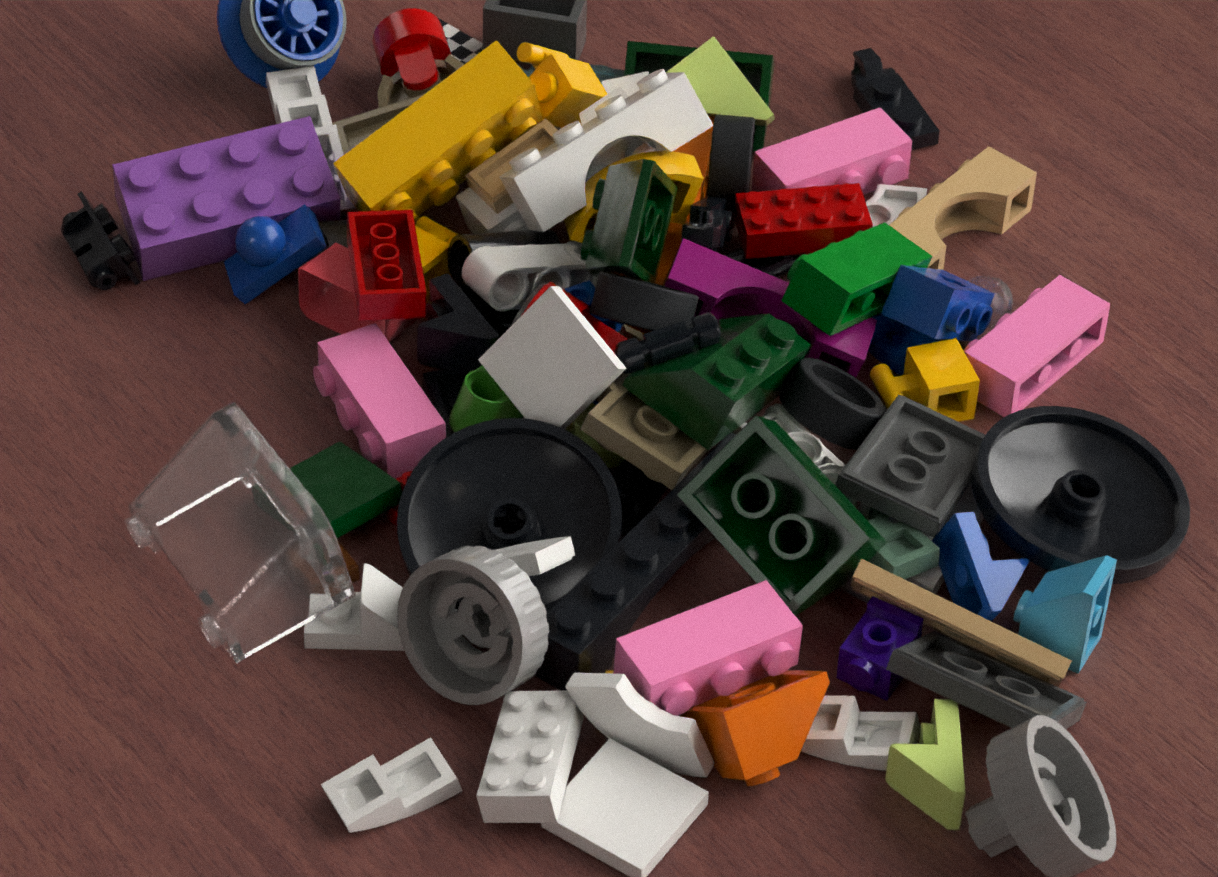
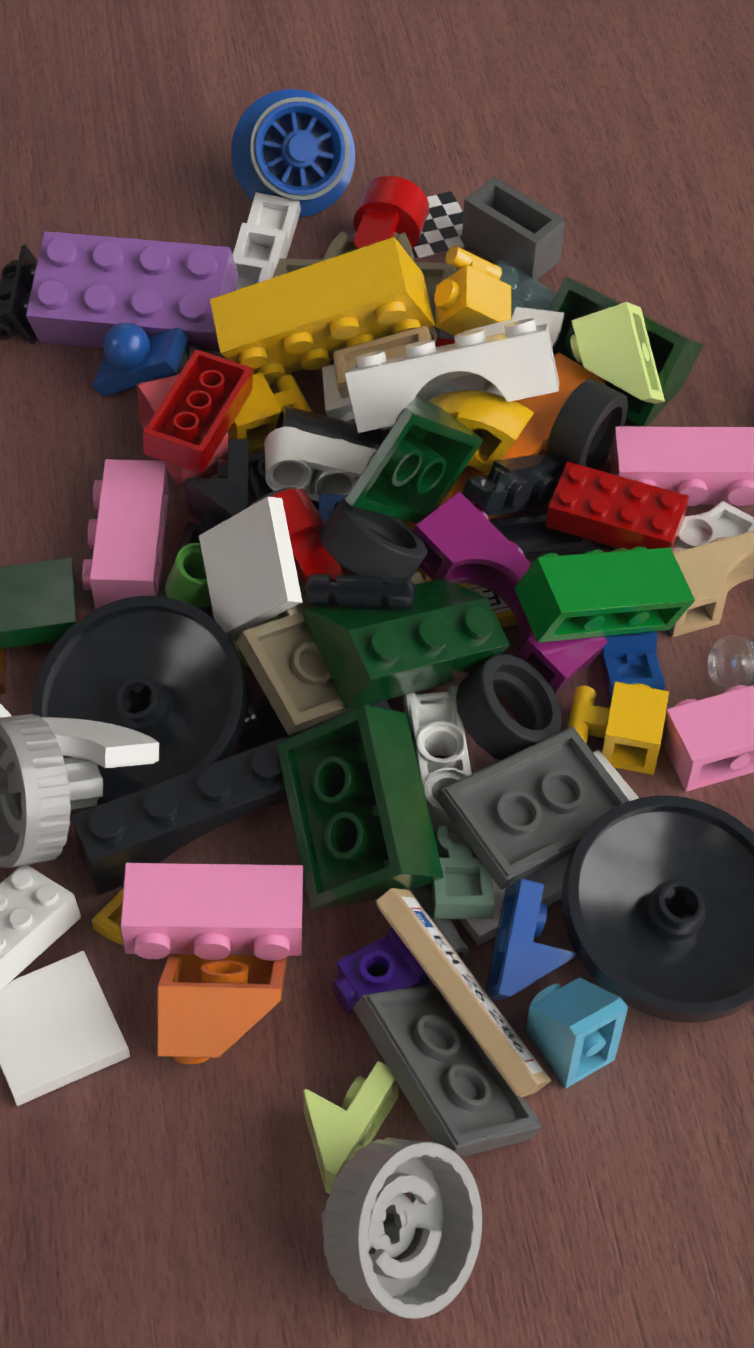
camera: 30 degrees right, 10 degrees up
(639, 724) = (110, 952): white tile -> none
(857, 737) = (304, 1053): white slope -> none
(938, 303) = (676, 649): blue brick -> none

